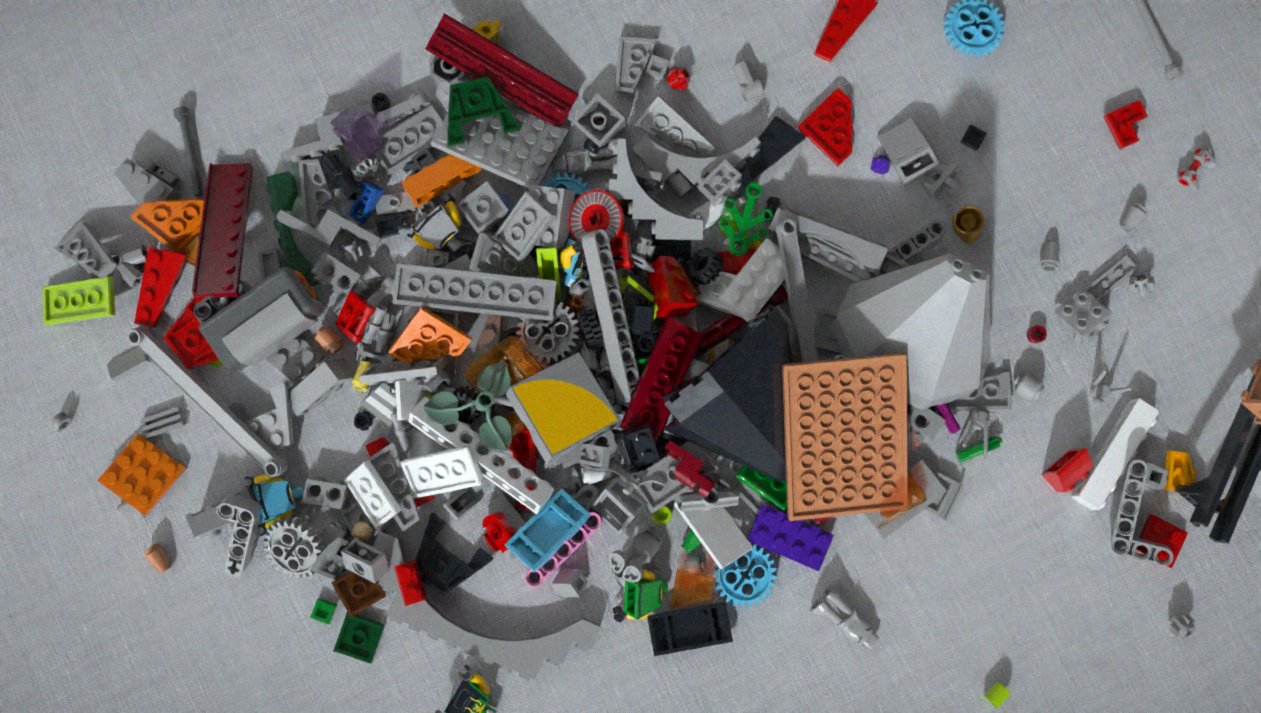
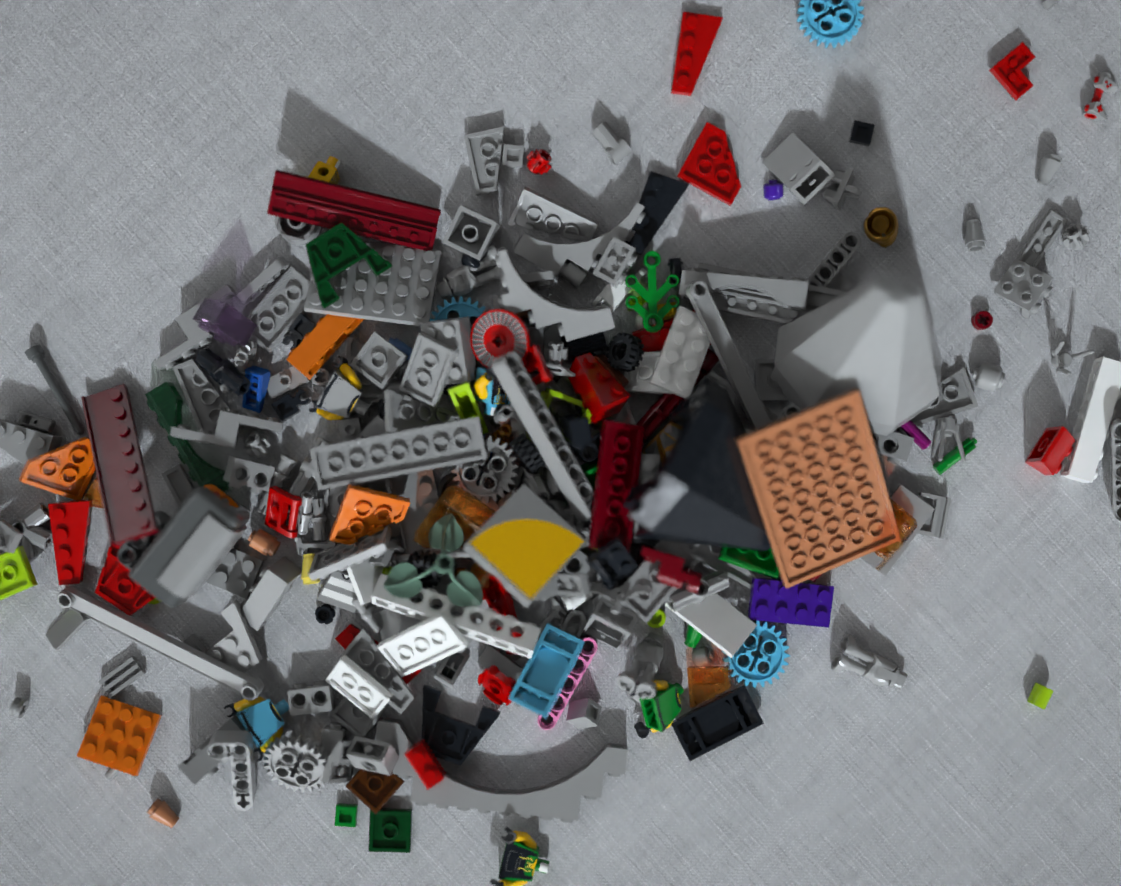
camera: 15 degrees left, 5 degrees up
(362, 531) = (359, 726): tan piece -> none
(381, 96) = (239, 285): black bush -> none

